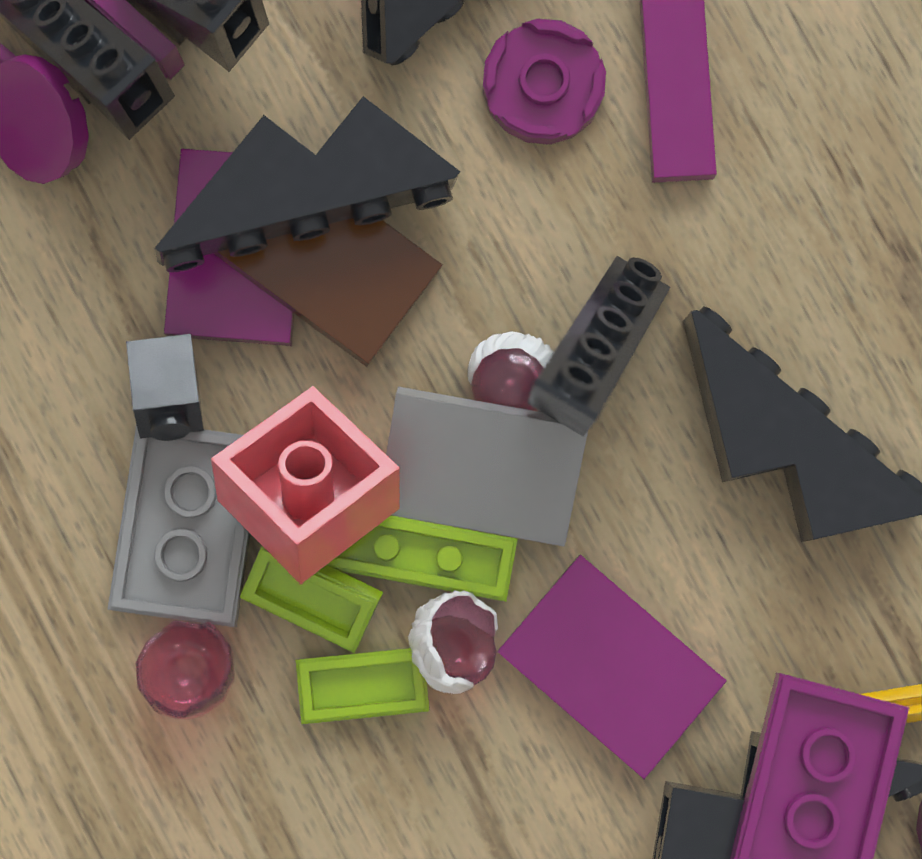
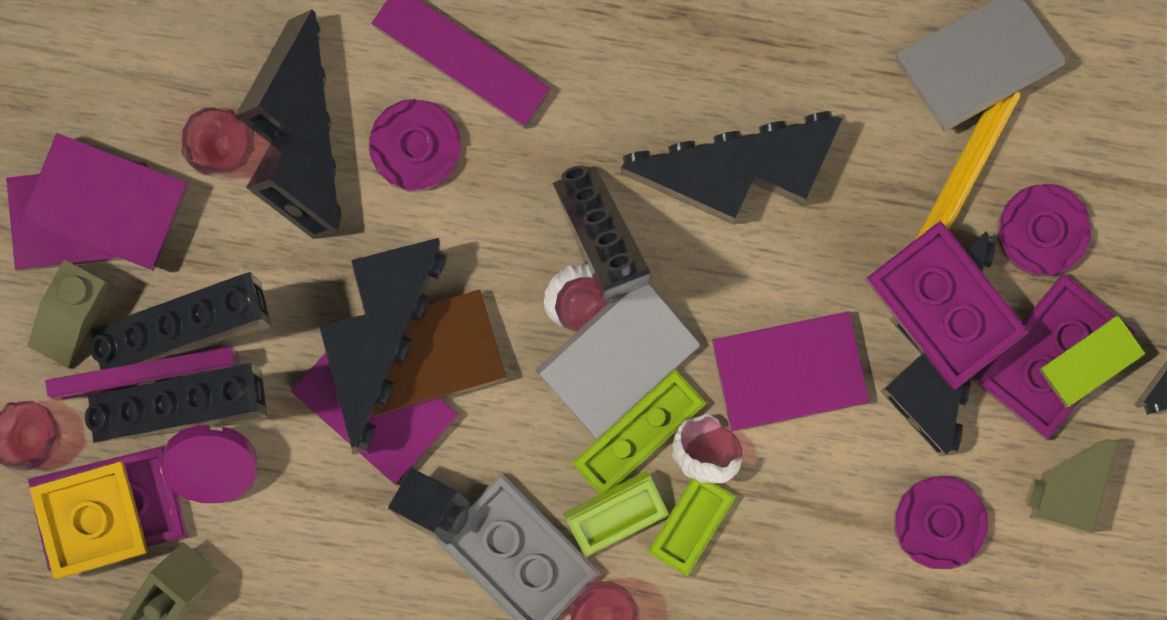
camera: 50 degrees left, 0 degrees up
(306, 484) = (552, 465): coral brick -> none

